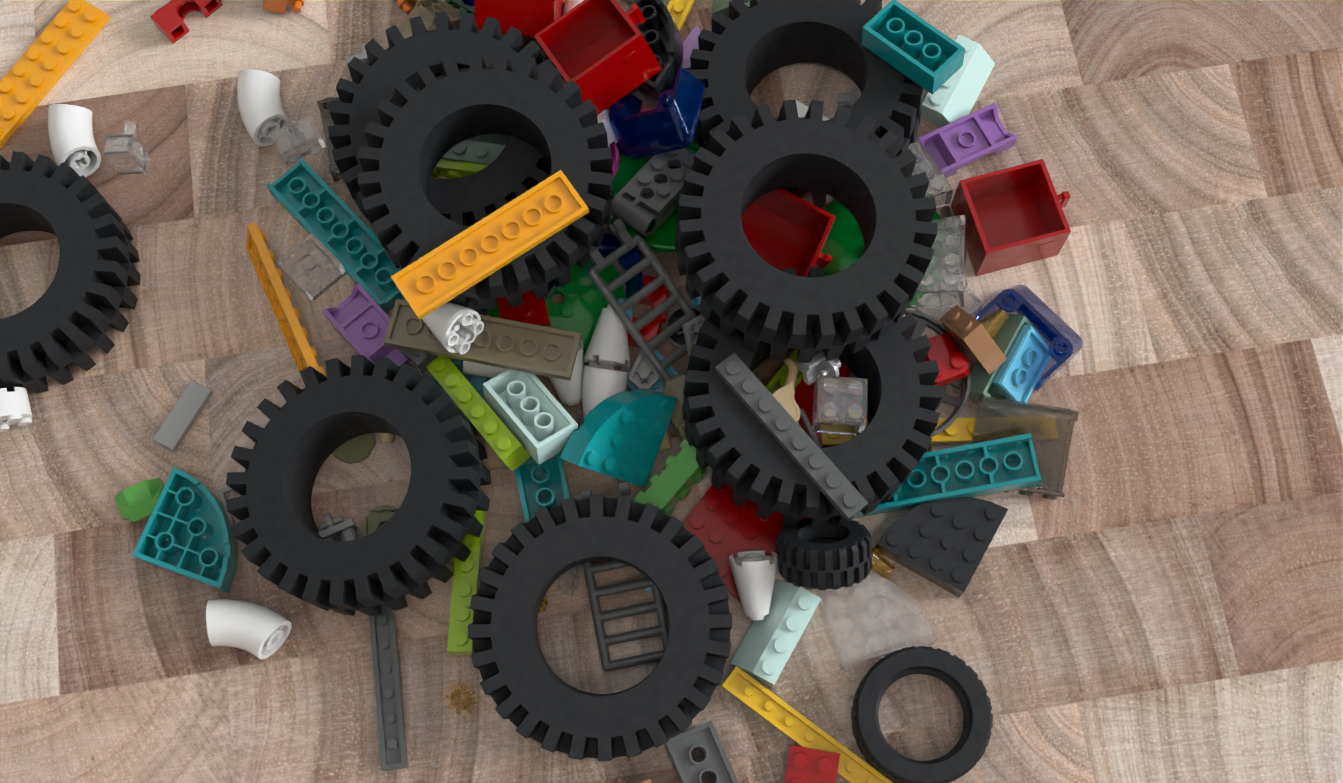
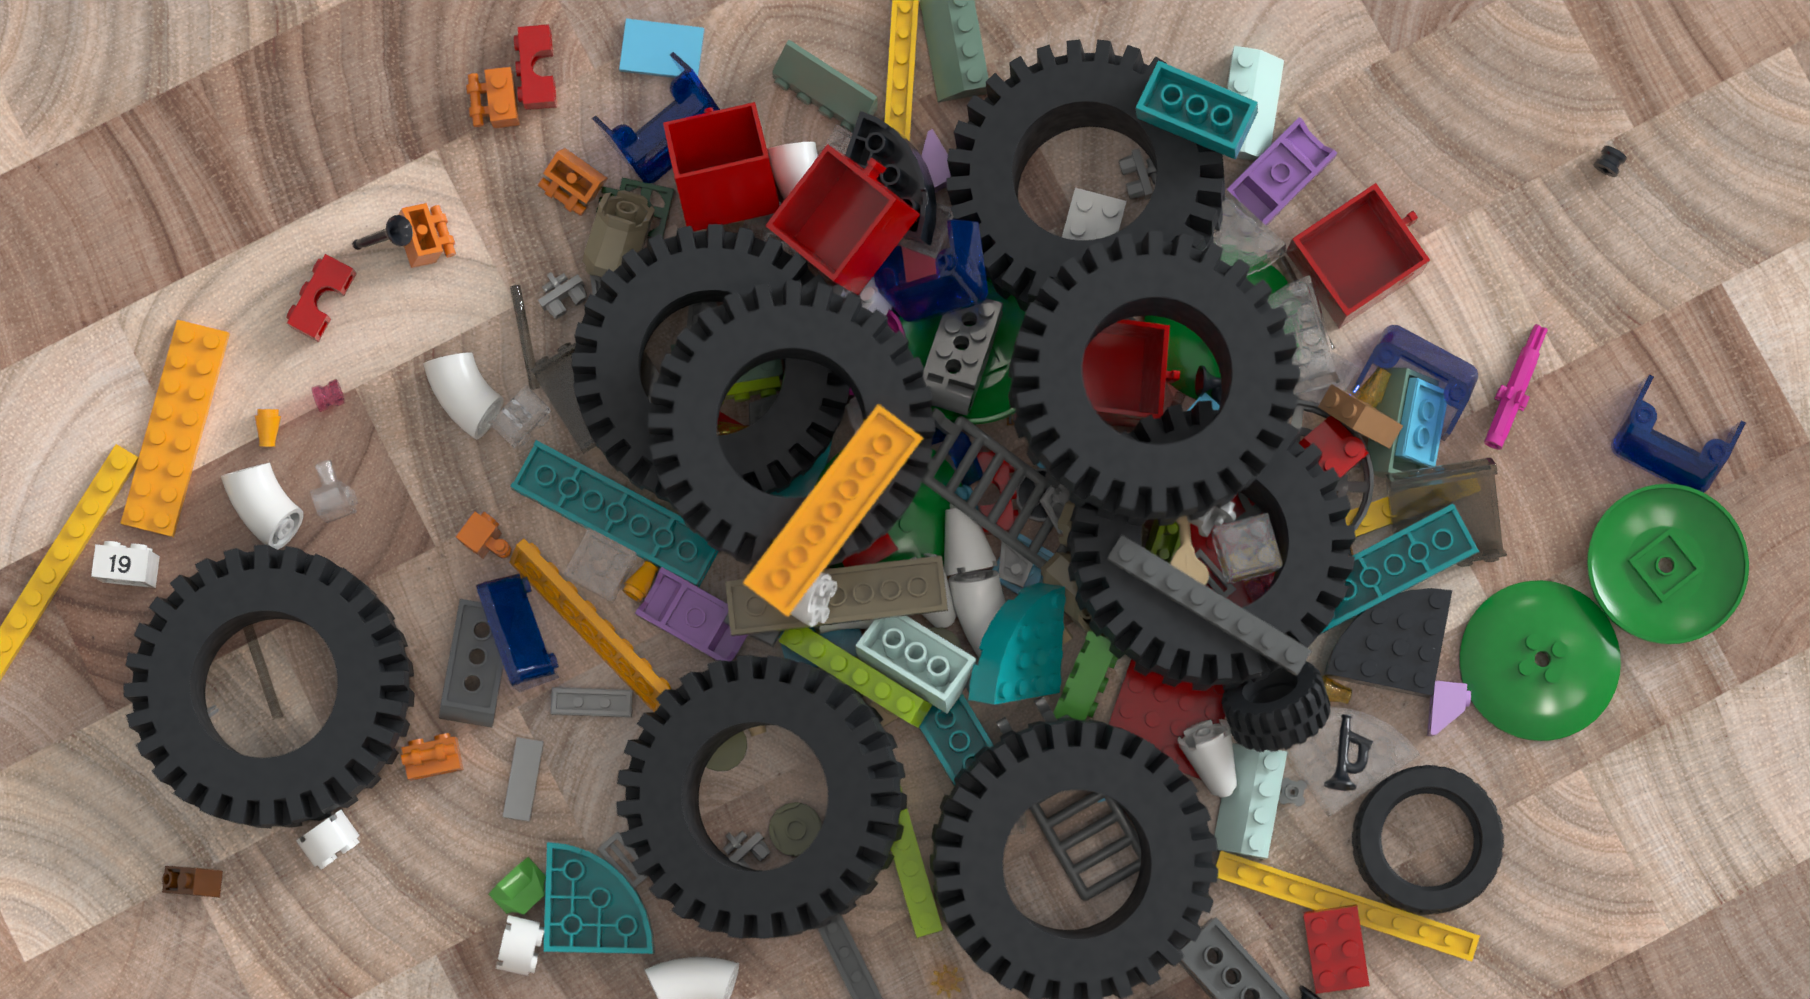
camera: 20 degrees left, 10 degrees up
(19, 268) = (262, 671): none -> clear smoke bar
(105, 88) = (267, 426): none -> light orange cone
(115, 546) = (519, 946): none -> white brick
(116, 373) = (431, 757): none -> orange brick
(160, 80) = (328, 395): none -> clear pink wheel
(175, 343) = (457, 701): none -> dark grey hinge
(216, 294) = (517, 632): none -> clear blue windscreen
(228, 214) = (482, 535): none -> orange brick
(260, 372) = (591, 702): none -> light grey tile
(329, 79) = (524, 335): none -> clear smoke bar
(338, 292) = (640, 582): none -> light orange cone
(817, 644) = (1297, 798): none -> light grey plate
(859, 636) = (1340, 779): none -> black piece
(973, 606) = (1446, 705): none -> lavender slope
(1042, 621) = (1502, 669): none -> green dish
(1107, 370) = (1512, 395): none -> dark pink piece
(1227, 459) = (1663, 456): none -> clear blue windscreen
(1238, 544) = (1705, 556): none -> green dish
(1242, 213) = (1610, 161): none -> black wheel

